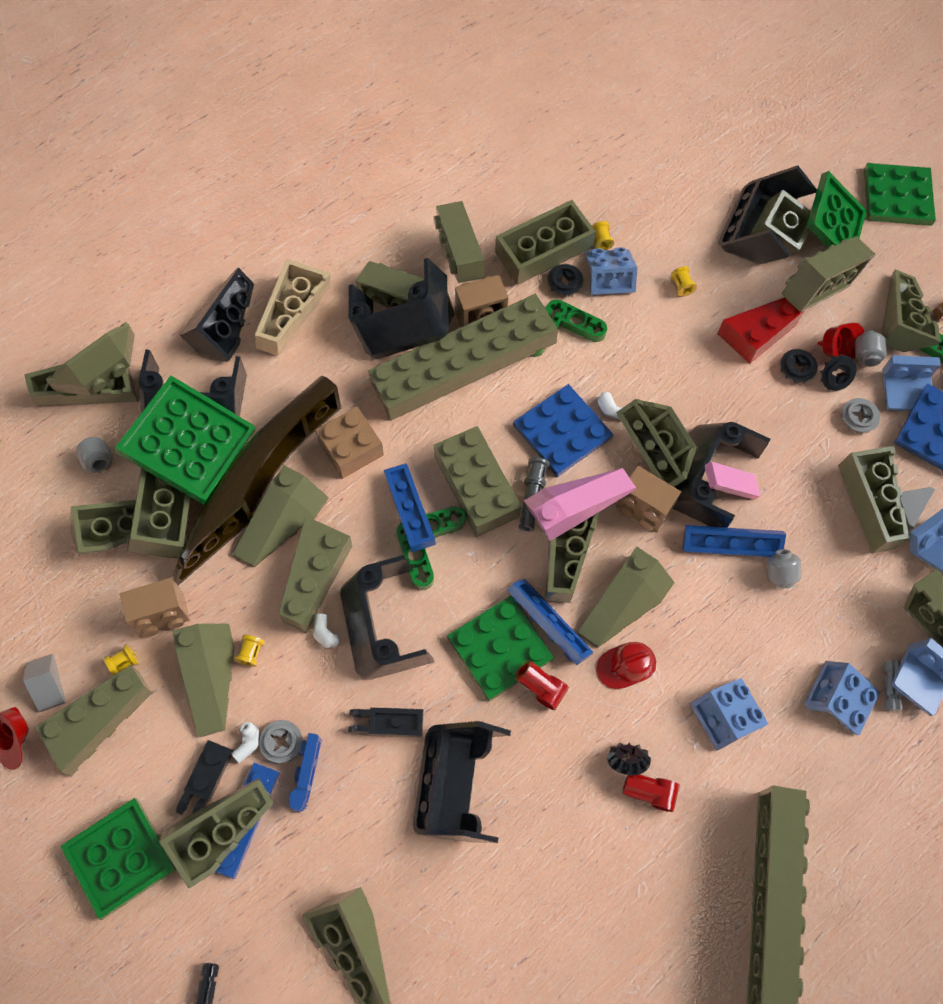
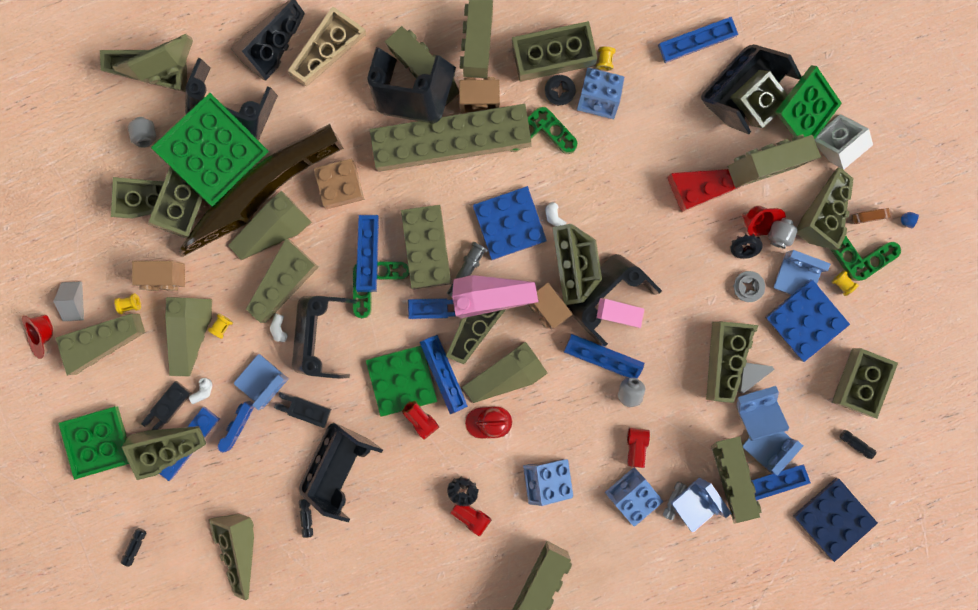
camera: 20 degrees right, 20 degrees up
(279, 729) = (216, 398): light grey gear -> none
(321, 704) = (261, 381): none -> medium blue bracket
(435, 867) = (305, 518): none -> black axle
(509, 549) = (429, 308): none -> blue hinge
(683, 281) = (656, 122): yellow bush -> none
(690, 193) = (698, 39): none -> blue plate
(803, 359) = (725, 222): black gear -> none
(818, 627) = (638, 442): none -> red piece
(890, 241) = (843, 141): none -> white slope
(899, 194) = (879, 94): green plate -> none

